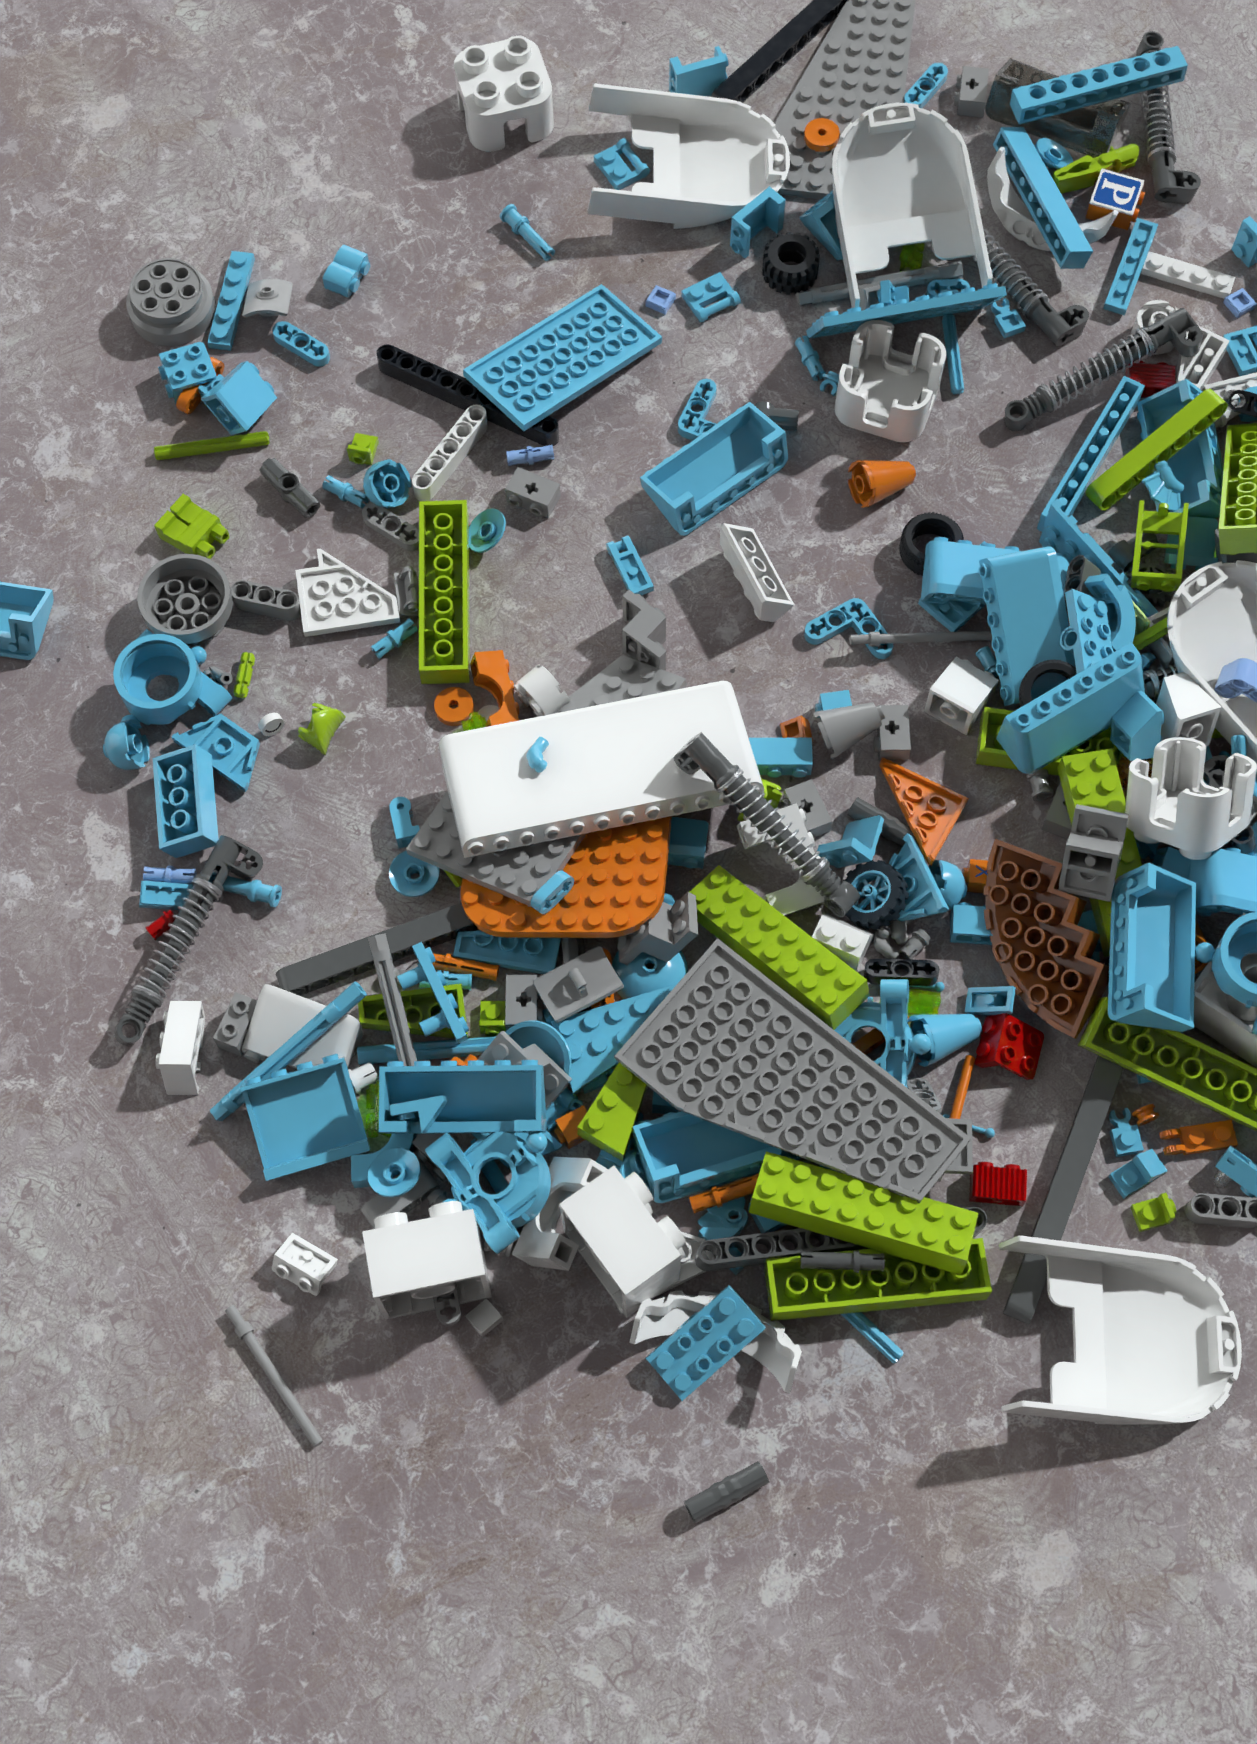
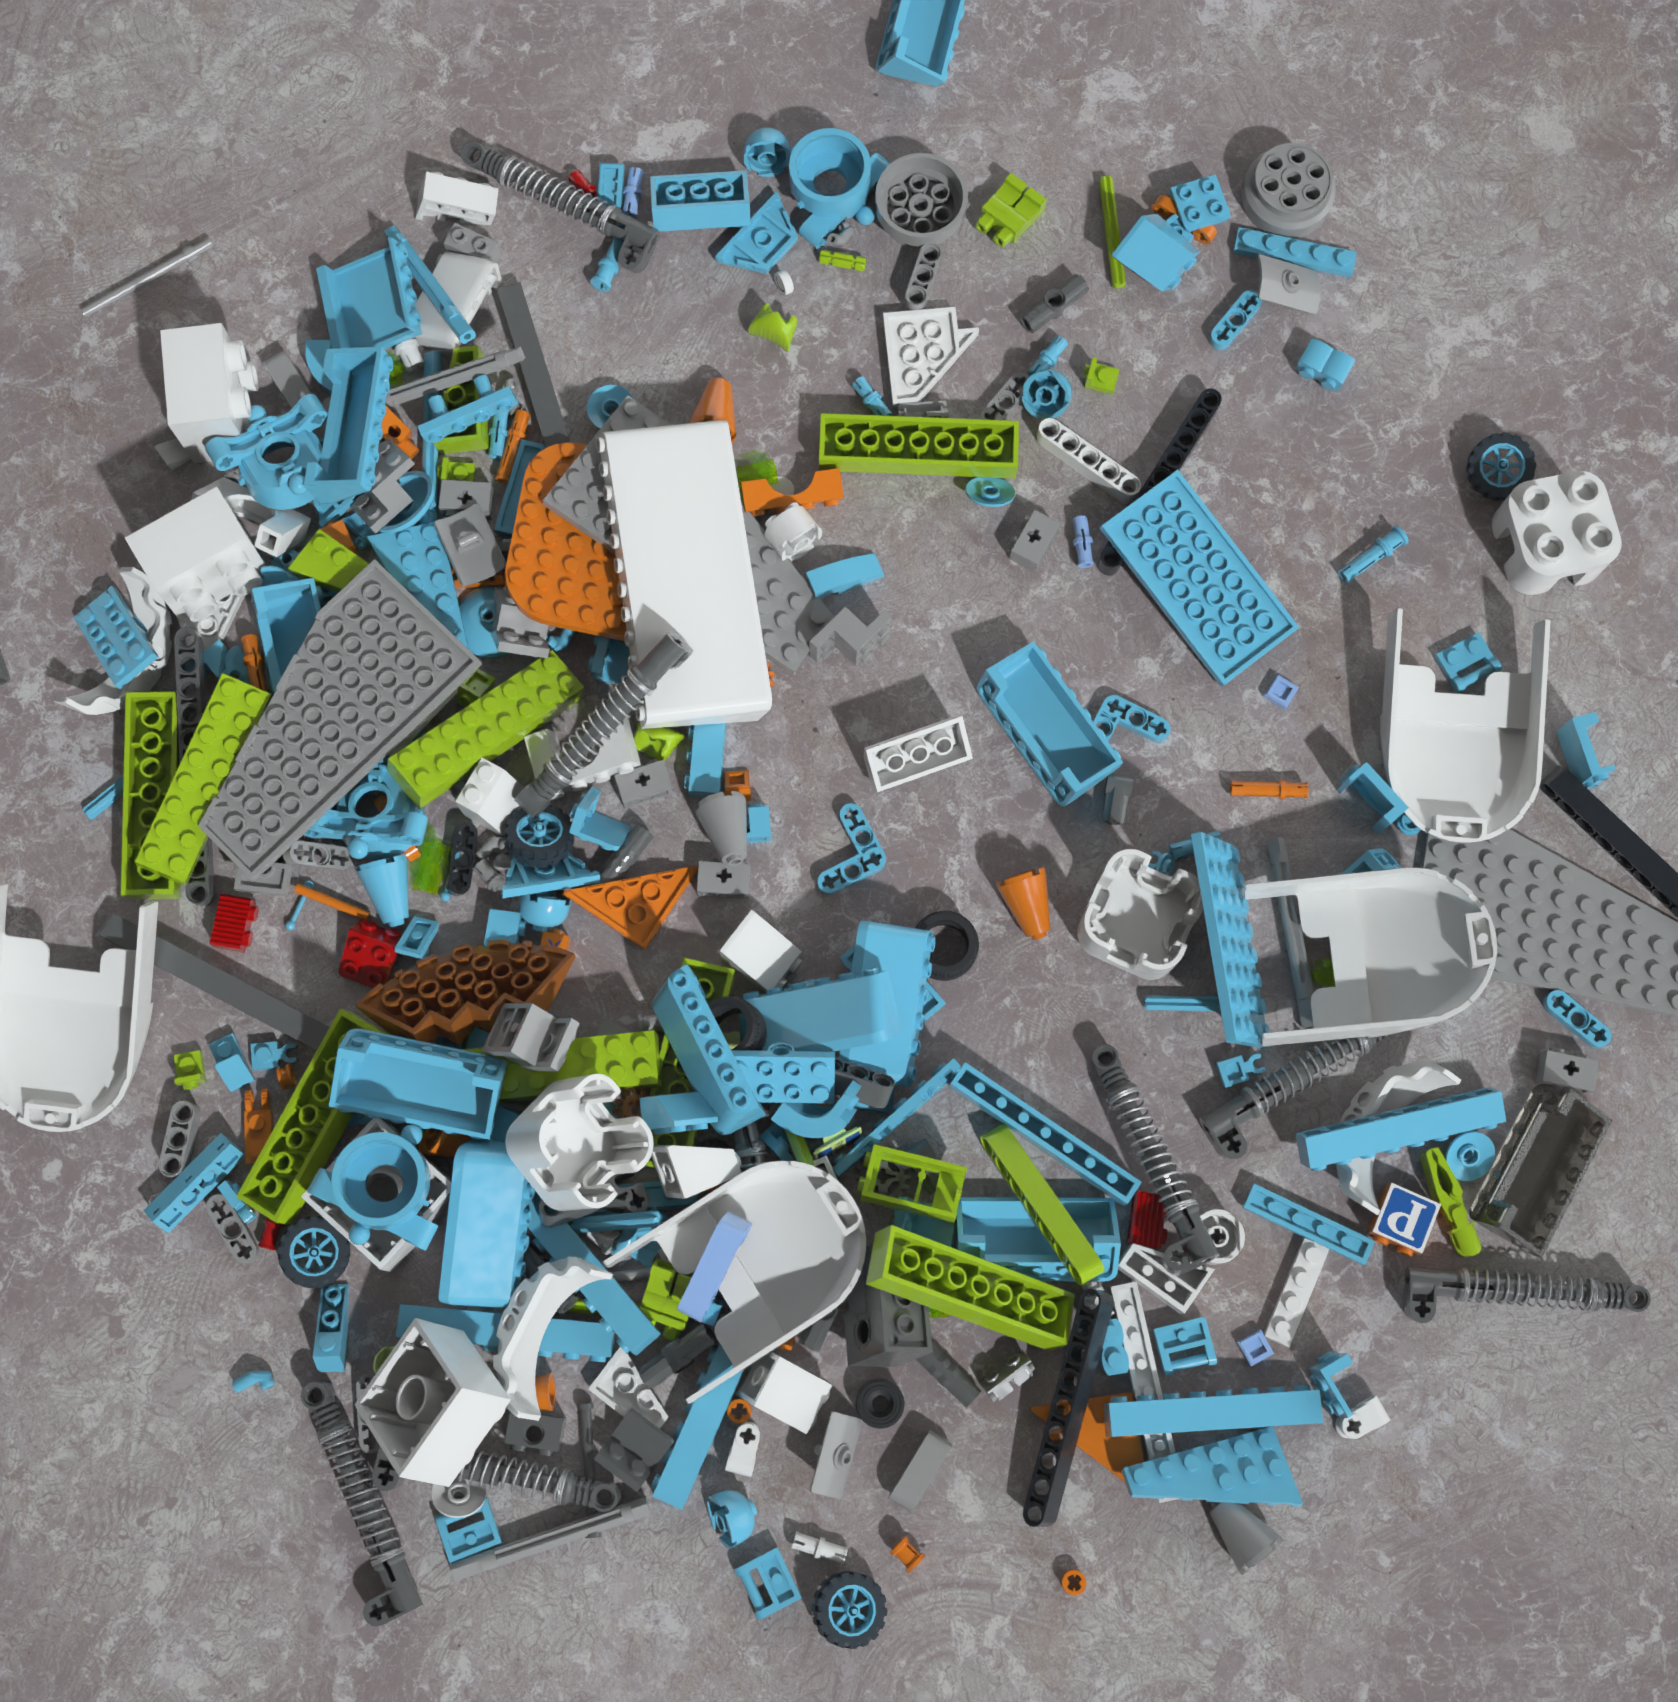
camera: 90 degrees right, 10 degrees up
(303, 1264) = (242, 302): white bracket -> none
(391, 1163) = (303, 364): medium azure dish -> none
(401, 816) = (668, 399): medium azure leg -> none
(415, 773) = (716, 405): none -> orange cone
(426, 1108) = (346, 387): medium azure slope -> none
(446, 124) = (1492, 443): none -> black wheel
(452, 696) = (797, 464): orange piece -> none
(535, 756) = (692, 501): medium azure arm -> none
(552, 892) = (552, 516): medium azure beam -> none
(579, 650) = (844, 575): none -> medium azure slope
(630, 566) = (940, 633): medium azure plate -> none
(707, 292) = (1288, 741): medium azure plate -> none
(752, 296) = (1269, 789): none -> orange pin
(794, 249) = (1333, 819): black tyre -> none
(824, 142) = (1507, 876): orange piece -> none
(842, 1261) = (160, 766): dark grey pin -> none
(868, 296) = (1271, 916): light grey slope -> none
(876, 638) = (831, 870): light grey bar -> none
(889, 293) = (1270, 942): medium azure bracket -> none
(946, 285) = (1288, 1008): medium azure beam -> none
(1098, 84) = (1554, 1228): medium azure brick -> none
(1164, 486) = (993, 1207): medium azure arm -> none

